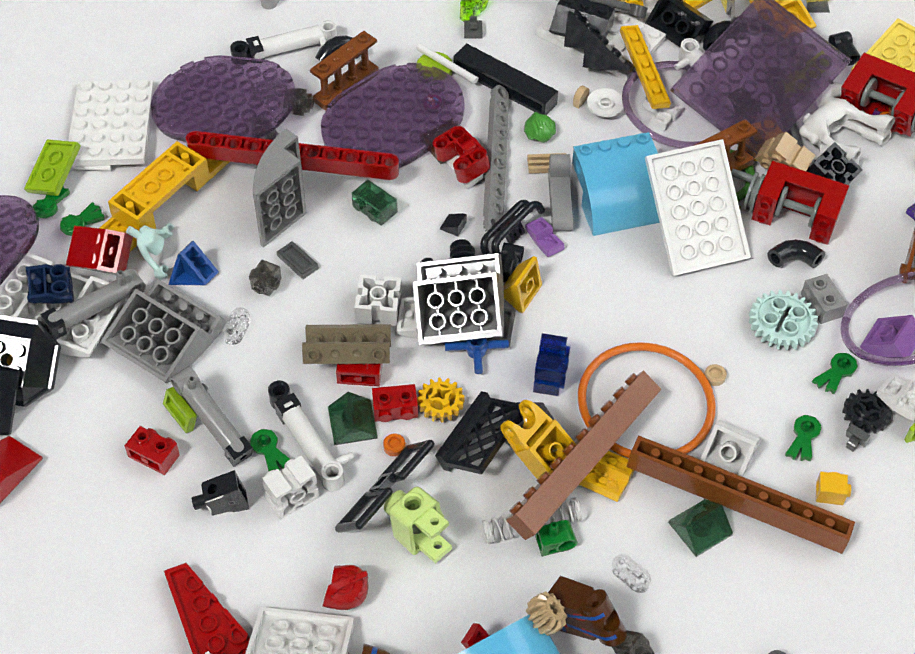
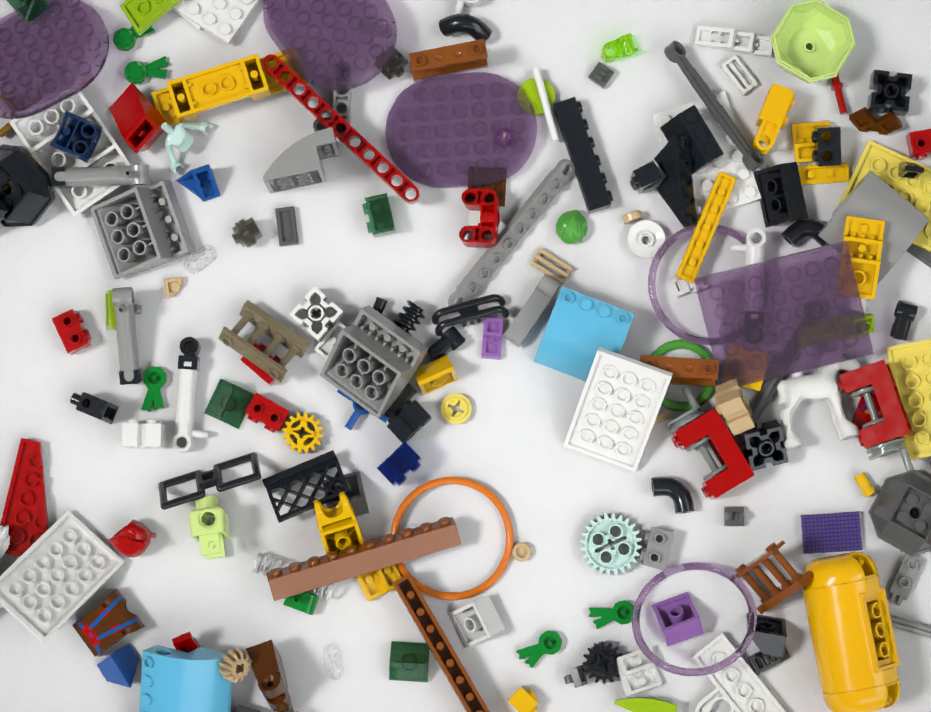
camera: 40 degrees right, 30 degrees up
(225, 362) = (172, 286): none -> tan tile
(393, 444) = (245, 444): orange tile -> none
(454, 223) = (431, 275): black slope -> none
(528, 327) = (409, 421): none -> black brick
(566, 298) = (452, 400): none -> light yellow gear
(569, 61) = (645, 177): none -> black brick
(858, 242) = (733, 516): none -> dark grey tile

